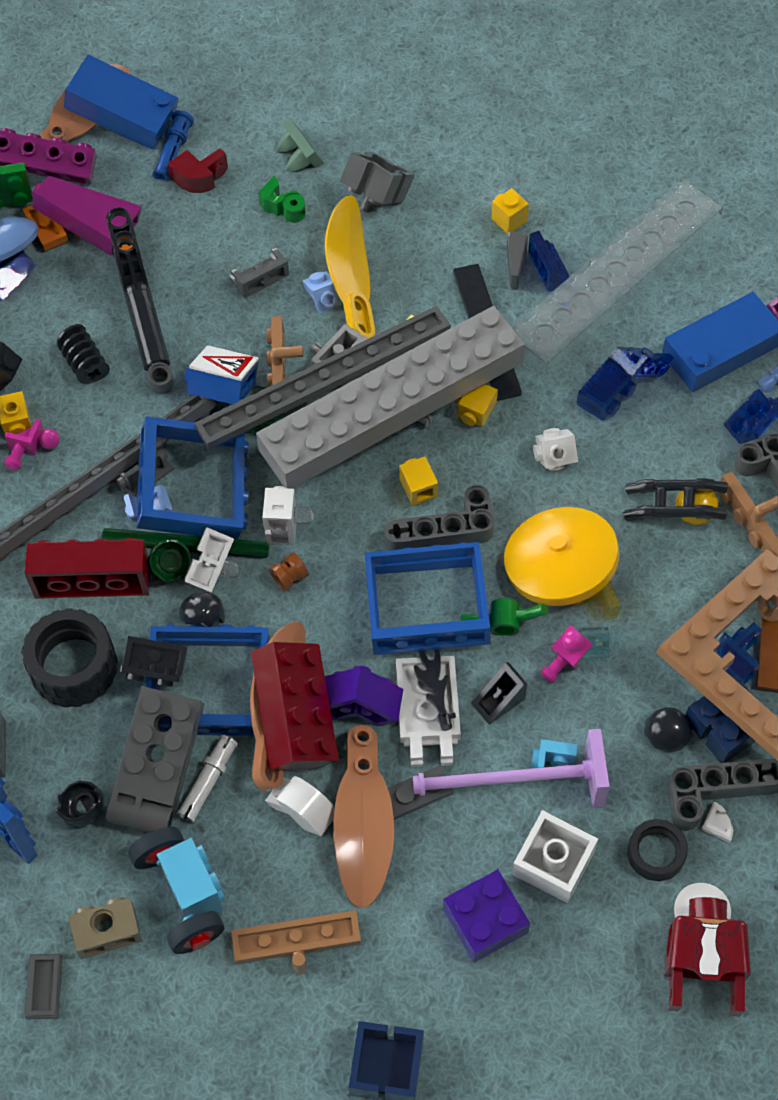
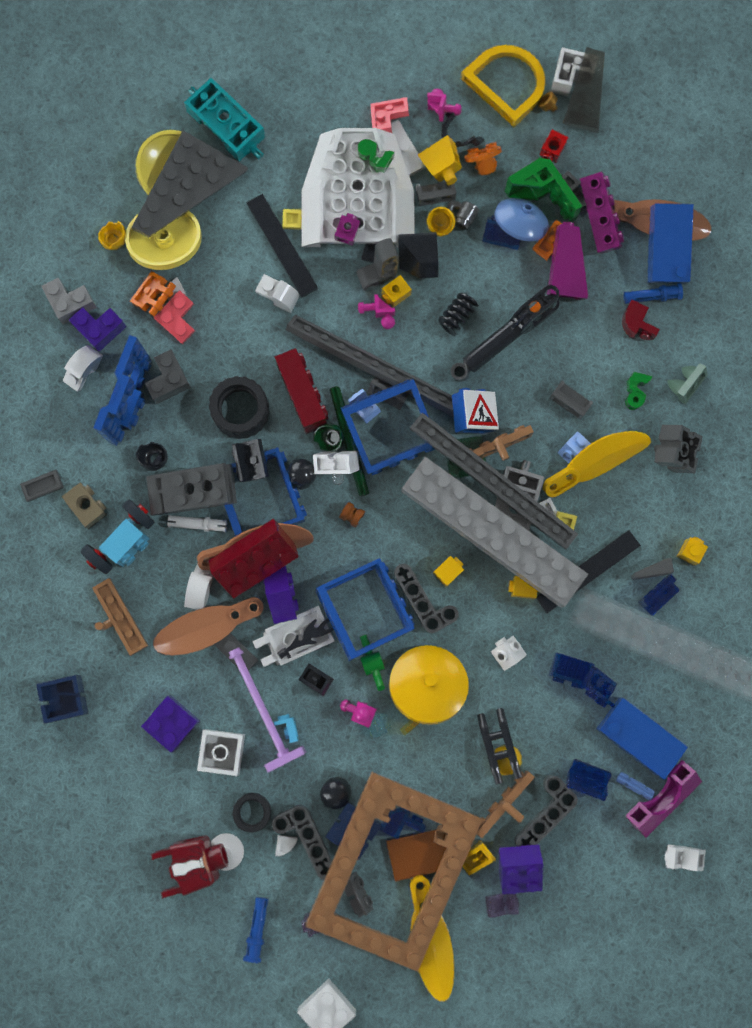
camera: 65 degrees right, 20 degrees up
(282, 515) = (386, 495): white piece -> none

